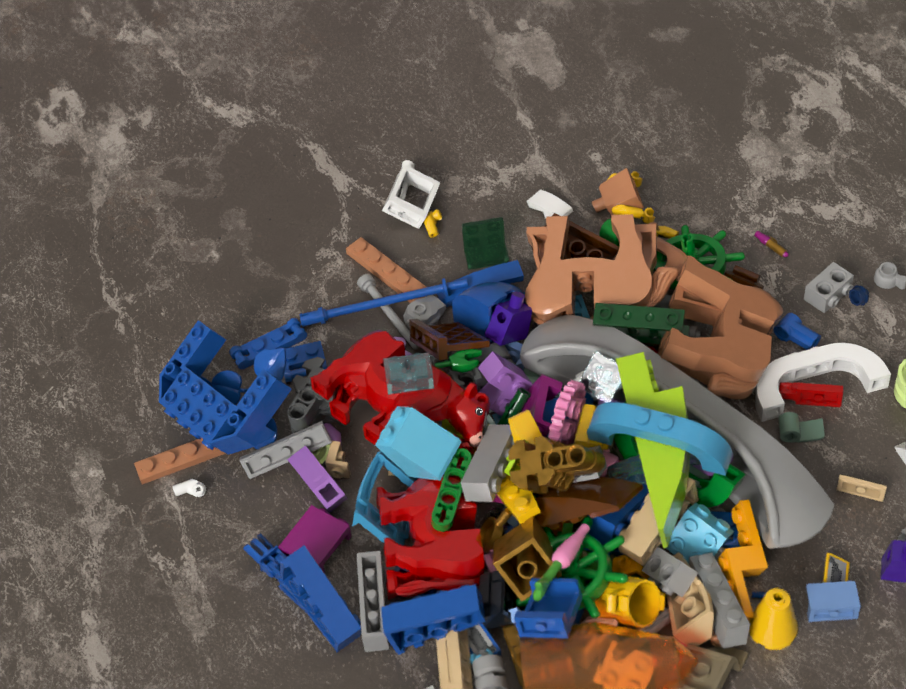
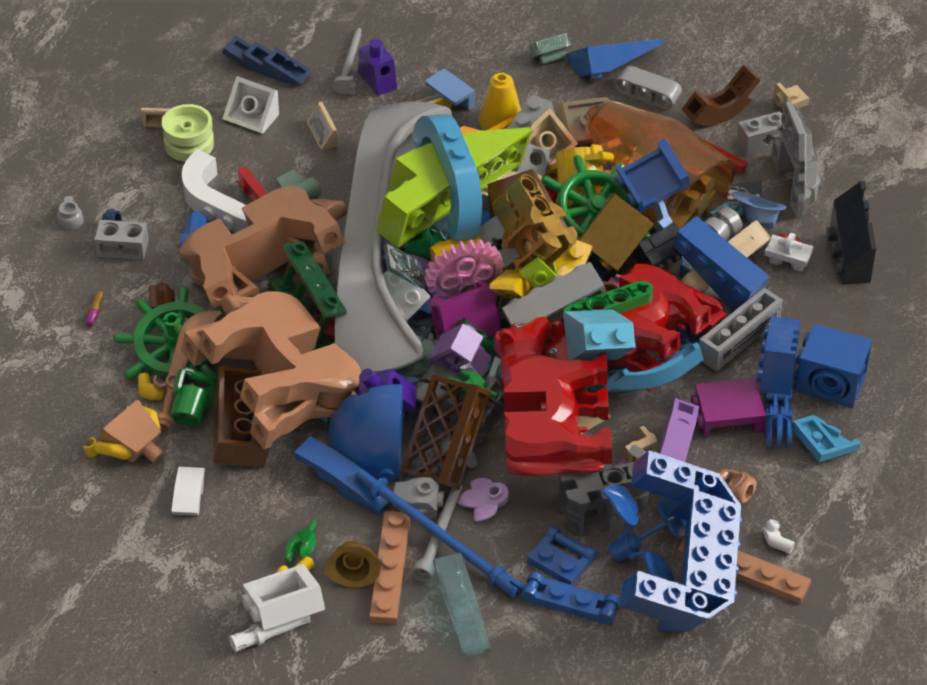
camera: 135 degrees left, 5 degrees down
(231, 581) = (823, 439): none -> dark azure wing
(248, 496) = (741, 484): none -> nougat piece
(276, 628) = (832, 365): none -> blue brick
(324, 283) = (462, 604): none -> clear light blue slope
(405, 246) = (353, 565): none -> pearl gold piece
(408, 373) = (541, 371): clear light blue brick -> none
(449, 236) = (302, 542): none -> green hand
(484, 243) = (291, 501): clear green bracket -> none
(561, 559) = (604, 190): bright pink piece -> none

